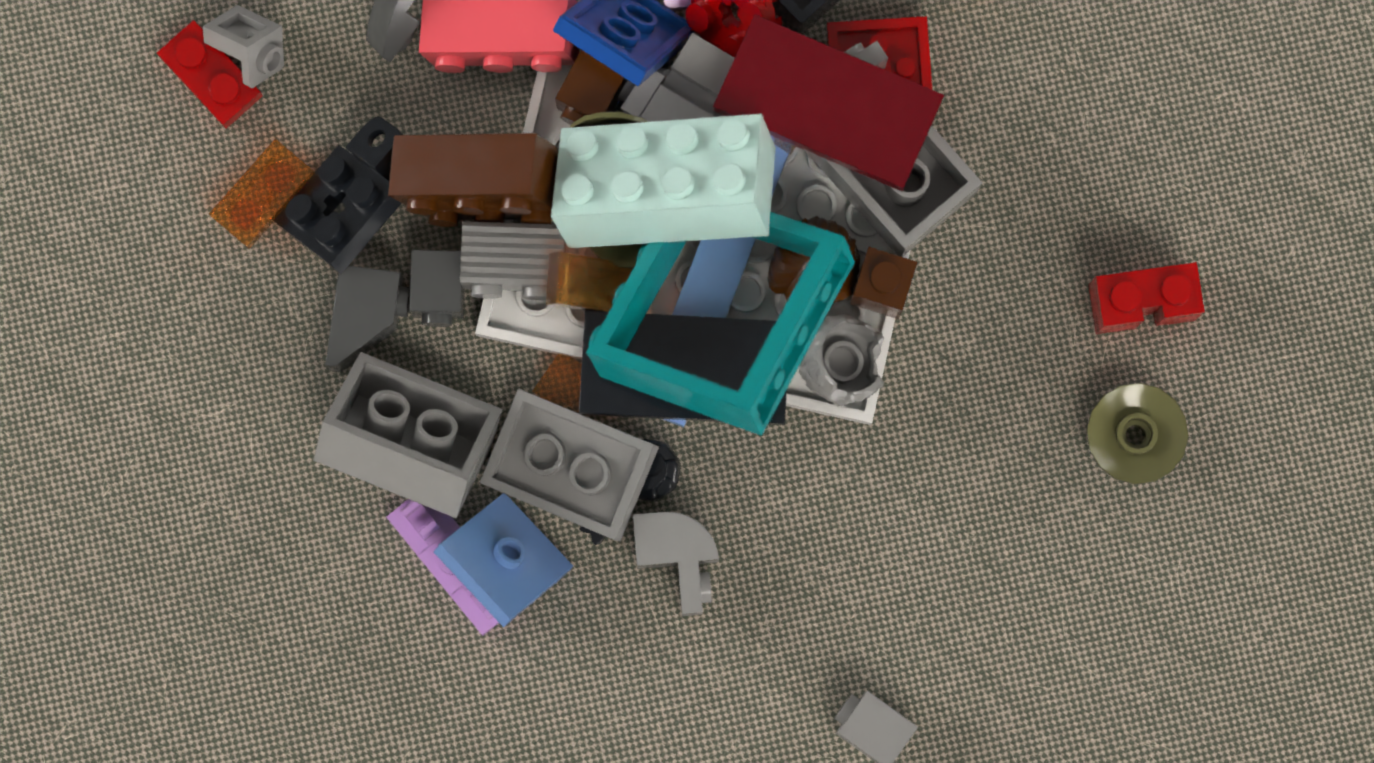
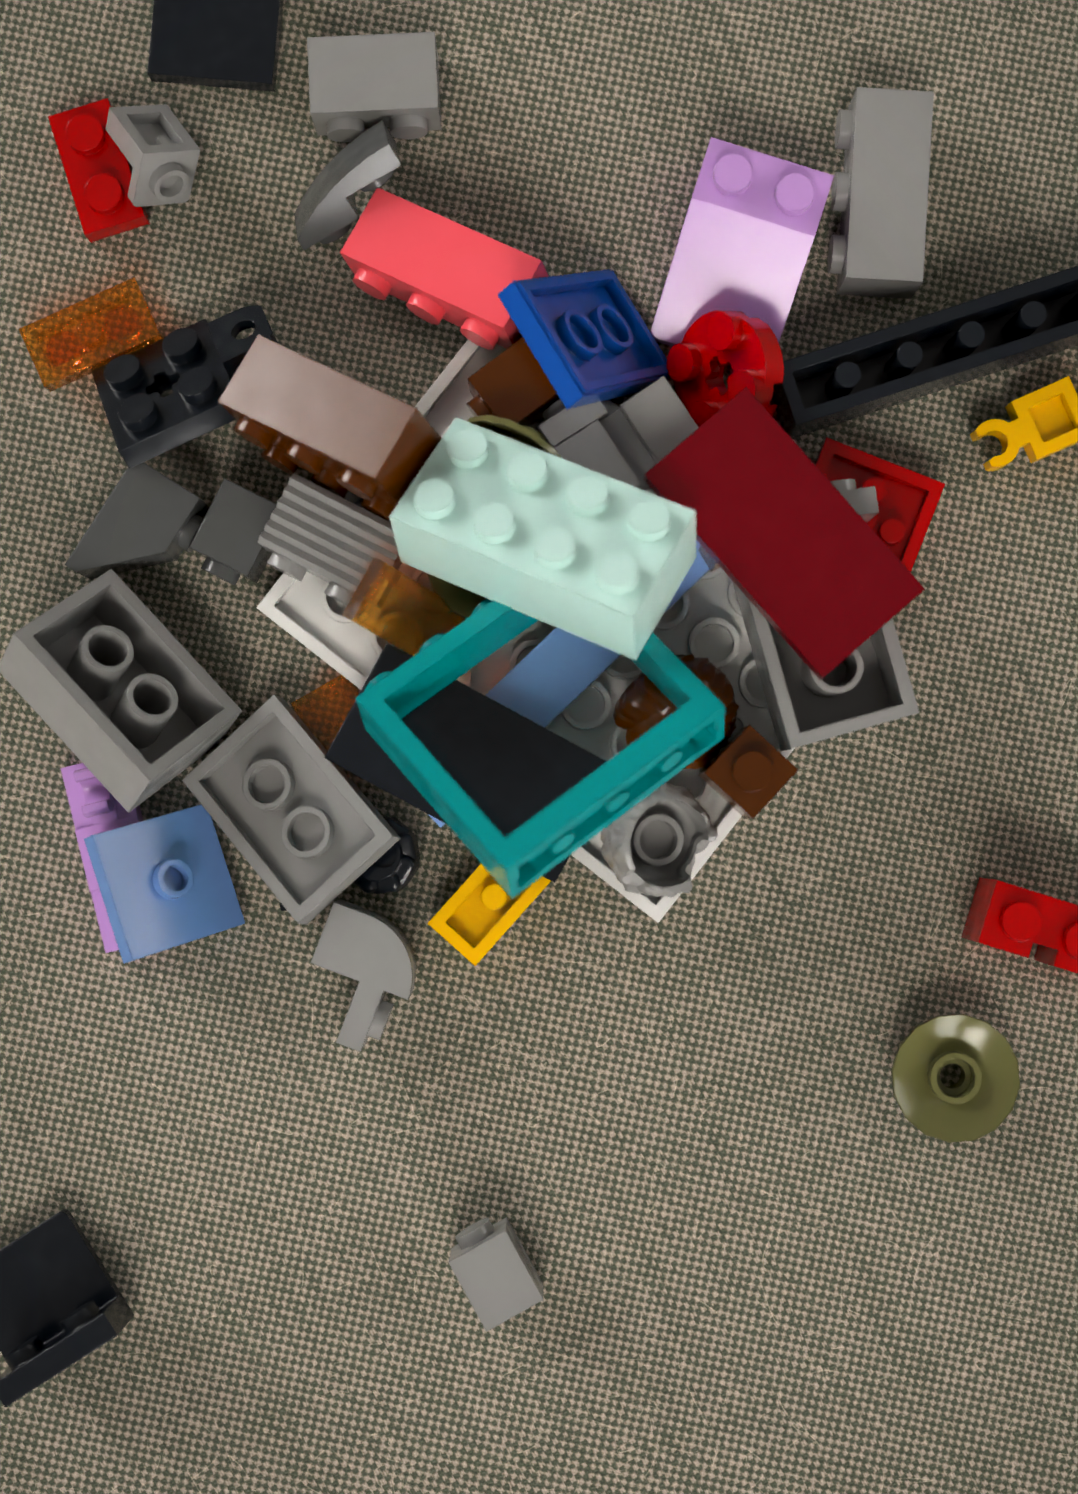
camera: 30 degrees right, 5 degrees up
(743, 469) = (481, 913): none -> yellow plate

